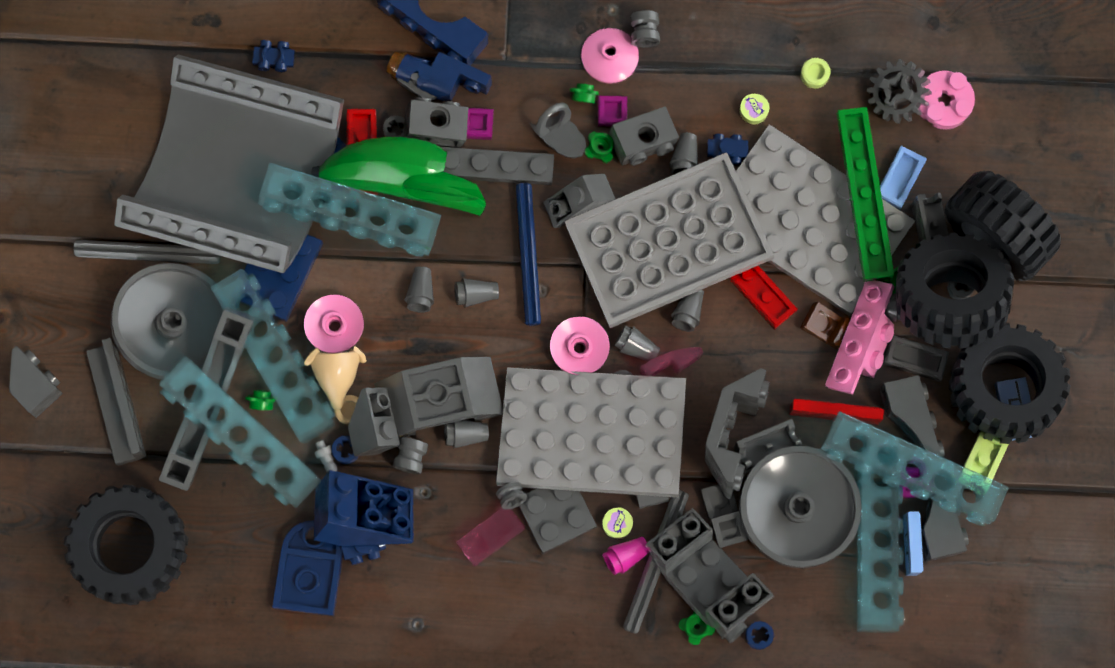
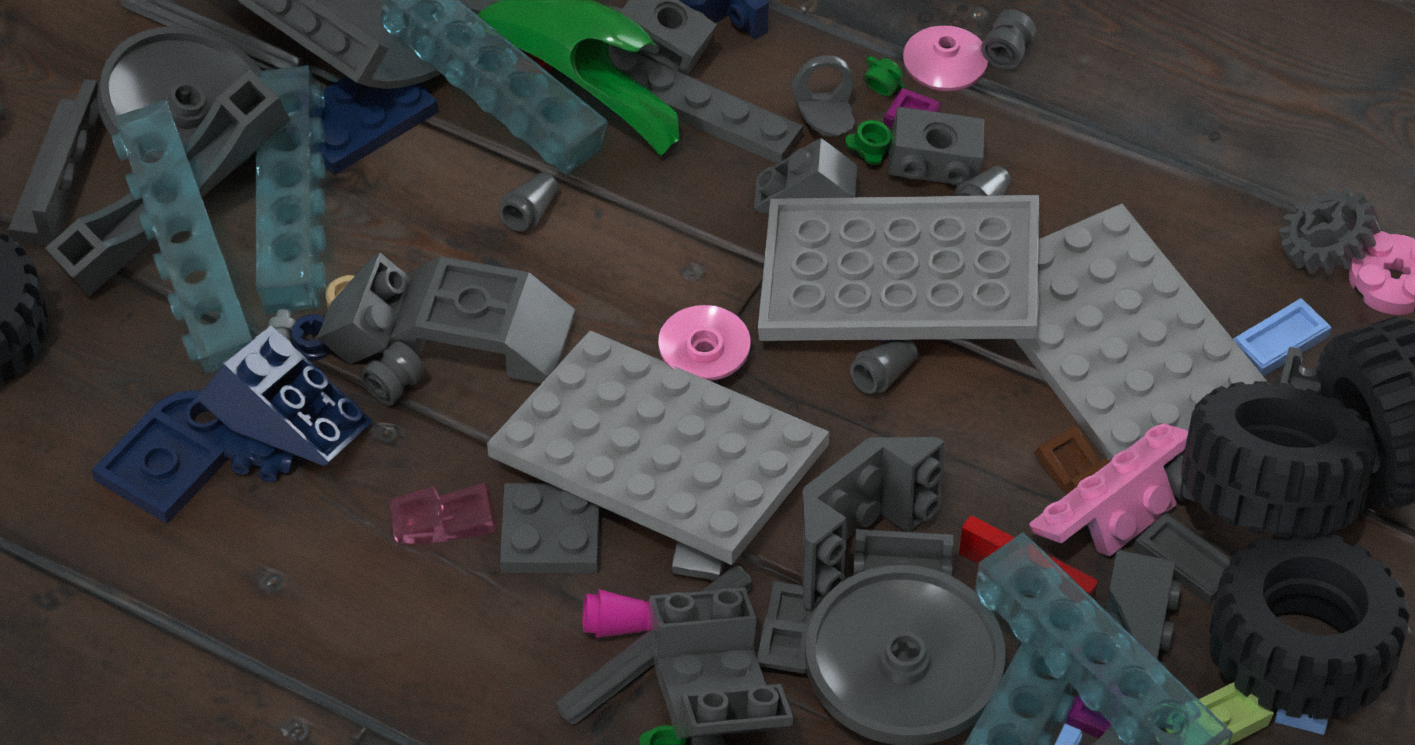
camera: 30 degrees right, 25 degrees down
(261, 400) = (238, 234): green plate -> none
(329, 310) = (390, 190): bright pink dish -> none
(335, 372) = (356, 232): tan hat -> none
(465, 433) = (483, 379): dark grey cone -> none
(472, 292) = (600, 230): dark grey cone -> none
(480, 123) = (723, 61): magenta tile -> none
(511, 495) = (493, 457): dark grey bush -> none
(528, 254) = (699, 222): dark blue axle -> none
(617, 523) = (629, 574): yellowish green tile -> none
(634, 343) = (784, 374): dark grey cone -> none
(678, 360) = (832, 410): clear pink slope -> none
(734, 146) = (1054, 211): dark blue piece -> none
(754, 108) = (1111, 182): yellowish green tile -> none
(764, 296) = (1001, 389): red tile -> none
(815, 73) = (1221, 176): yellowish green tile -> none
(865, 194) = (1212, 316): green plate -> none

